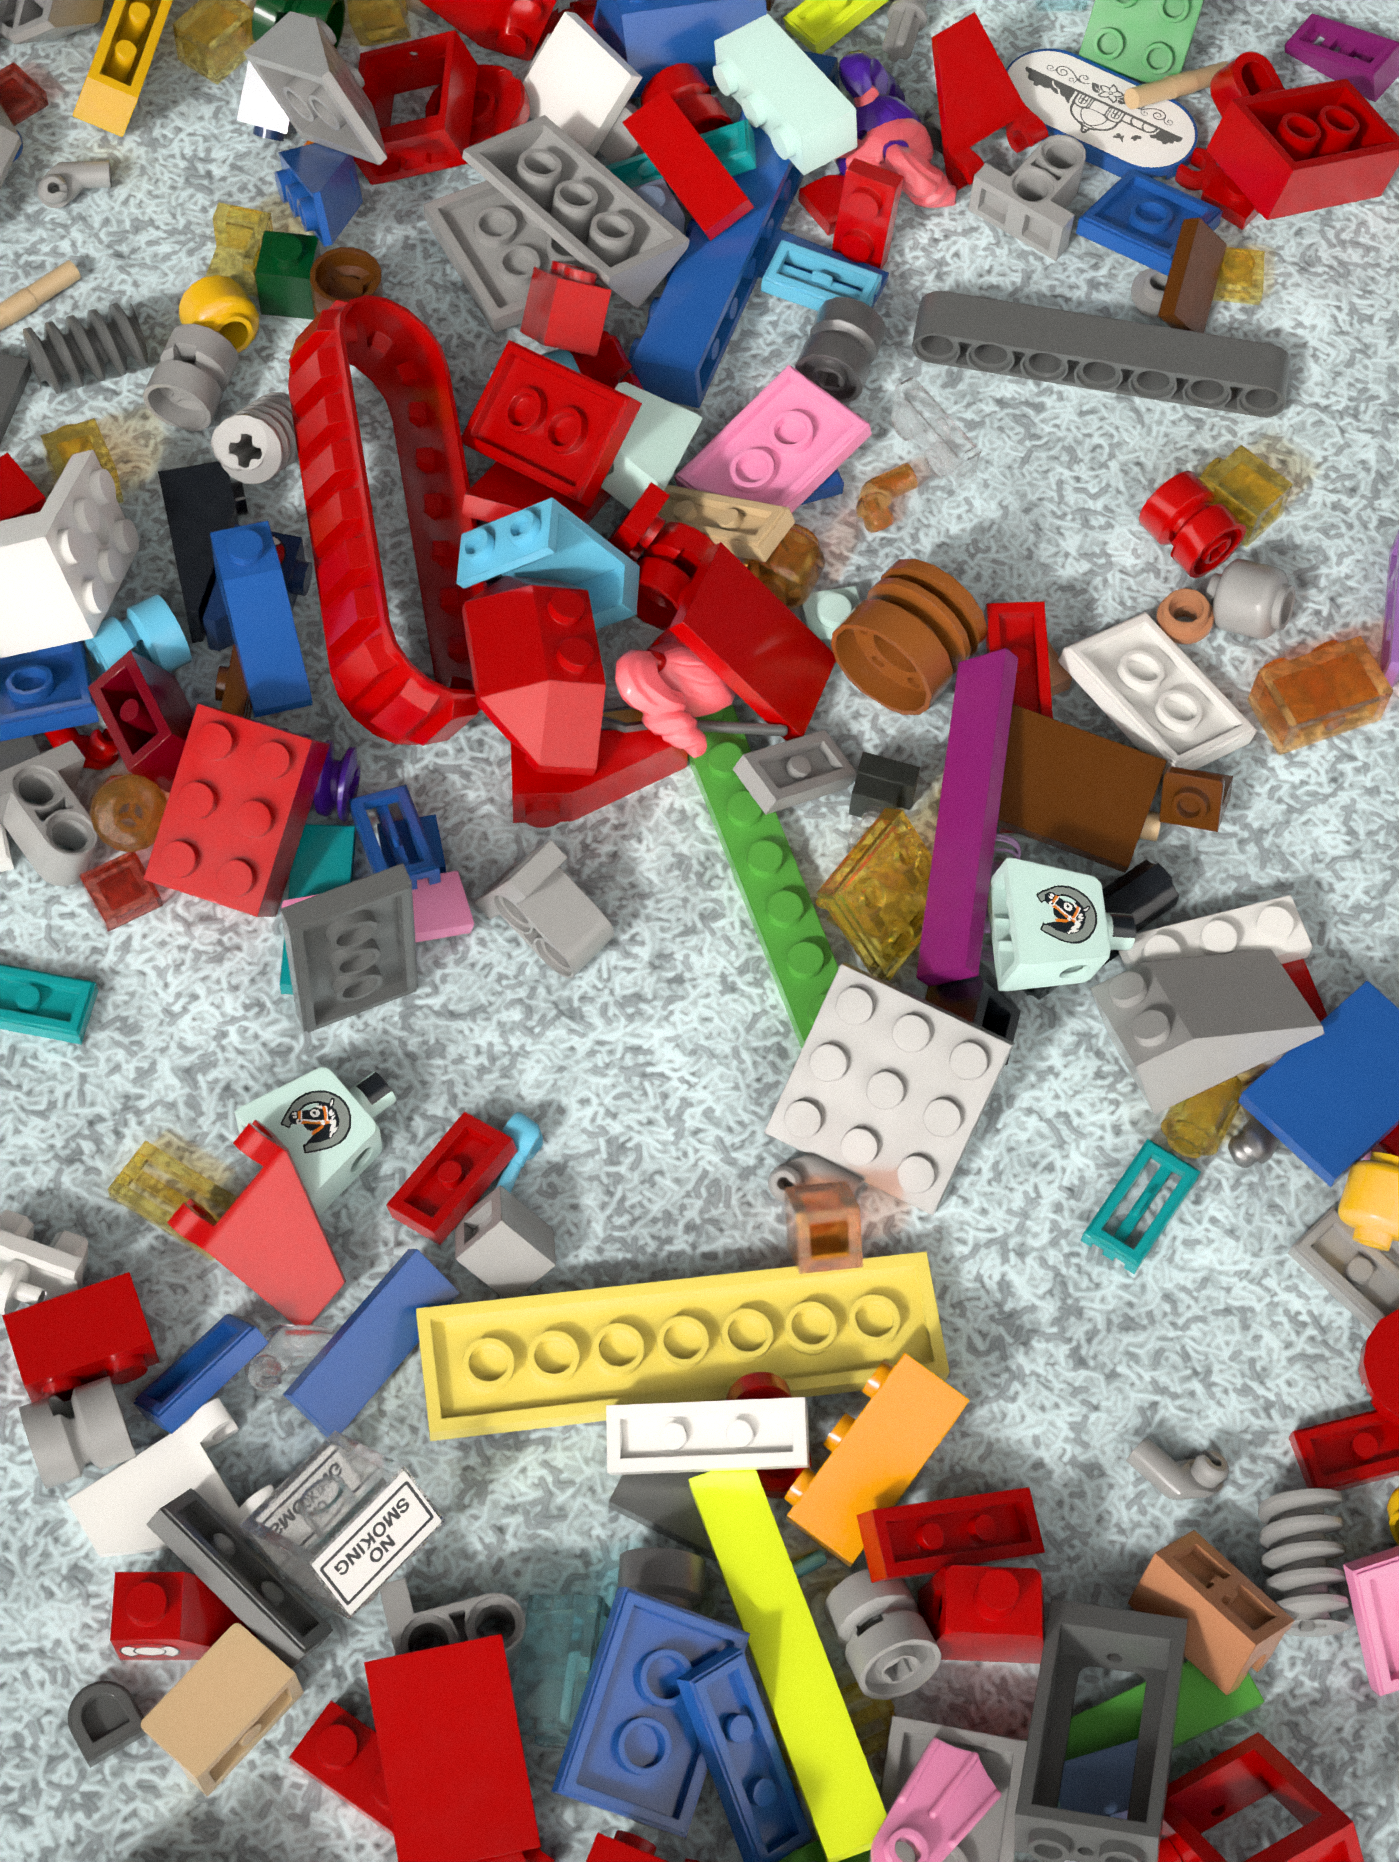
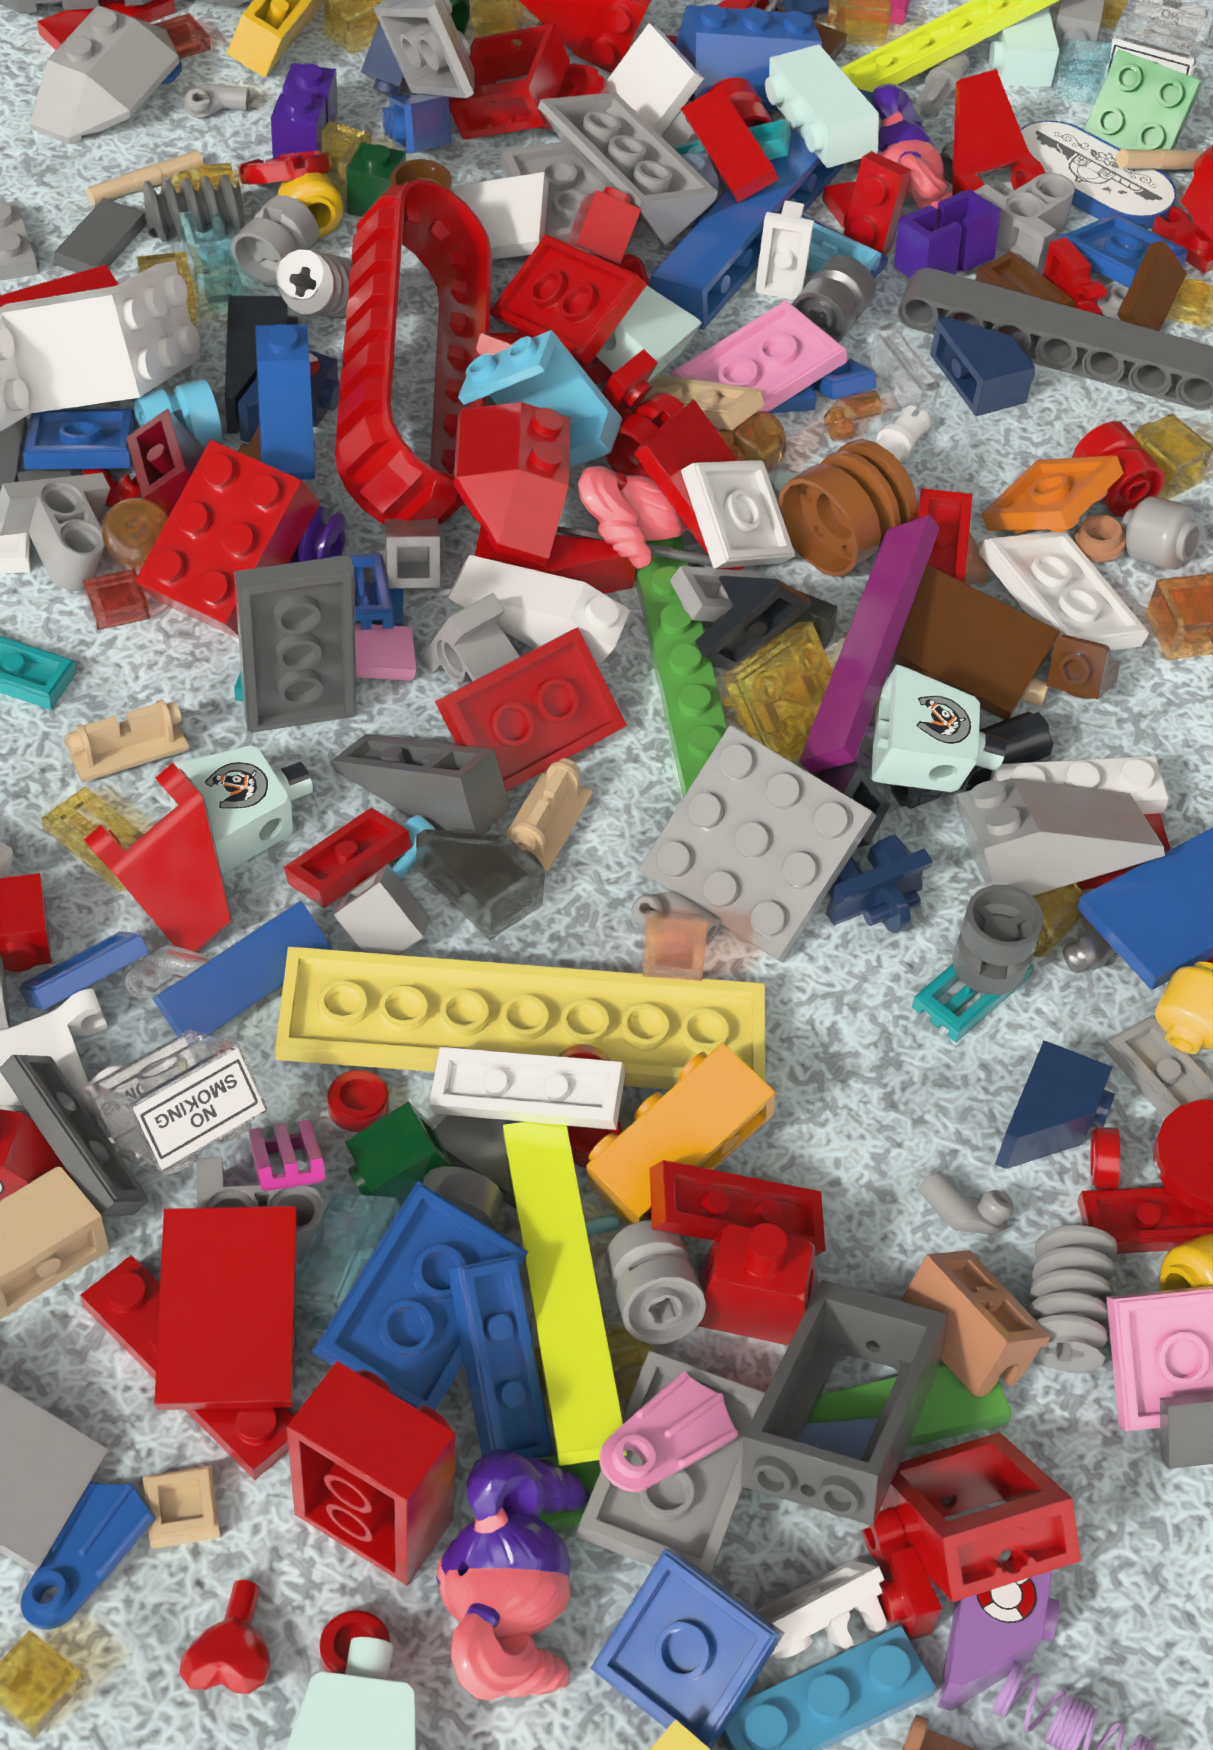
camera: 10 degrees right, 10 degrees down
(83, 295) = (195, 173): none -> clear yellow arm
(124, 422) = (210, 264): none -> clear light blue hinge
(177, 1076) = (116, 746): none -> tan hinge
(182, 274) = (285, 167): none -> red tile
(184, 192) = (303, 109): none -> dark purple piece
(440, 779) = (412, 553): none -> flat silver brick
(448, 292) = (510, 211): none -> white tile
(458, 1533) = (285, 1145): none -> dark pink tile
(520, 1067) = (442, 782): none -> dark grey slope
(525, 1468) = (357, 1100): none -> red tile
(586, 1537) = (395, 1154): none -> dark green brick
(602, 833) = (542, 604): none -> white slope
(602, 1176) = (482, 876): none -> clear smoke slope
(614, 965) = (535, 708): none -> red plate
(653, 1087) = (550, 812): none -> tan hinge
(776, 299) = (784, 252): none -> white plate
(791, 669) = (738, 513): none -> white tile
(836, 801) = (758, 615): none -> black slope
(875, 455) = (846, 381): none -> blue tile
(943, 524) = (904, 433): none -> white pin
(957, 242) = (958, 242): none -> dark purple piece
(1020, 408) = (982, 365): none -> dark blue slope
(1039, 281) = (1016, 275): none -> reddish brown tile
(1040, 1088) = (884, 892): none -> dark blue hips
(1097, 269) = (1071, 273): none -> red plate
(1126, 573) = (1052, 494): none -> orange plate
(1163, 1161) = (997, 939): none -> dark grey wheel
(1252, 1337) = (1056, 1106): none -> dark blue slope
(1312, 1390) = (1105, 1158): none -> red tile

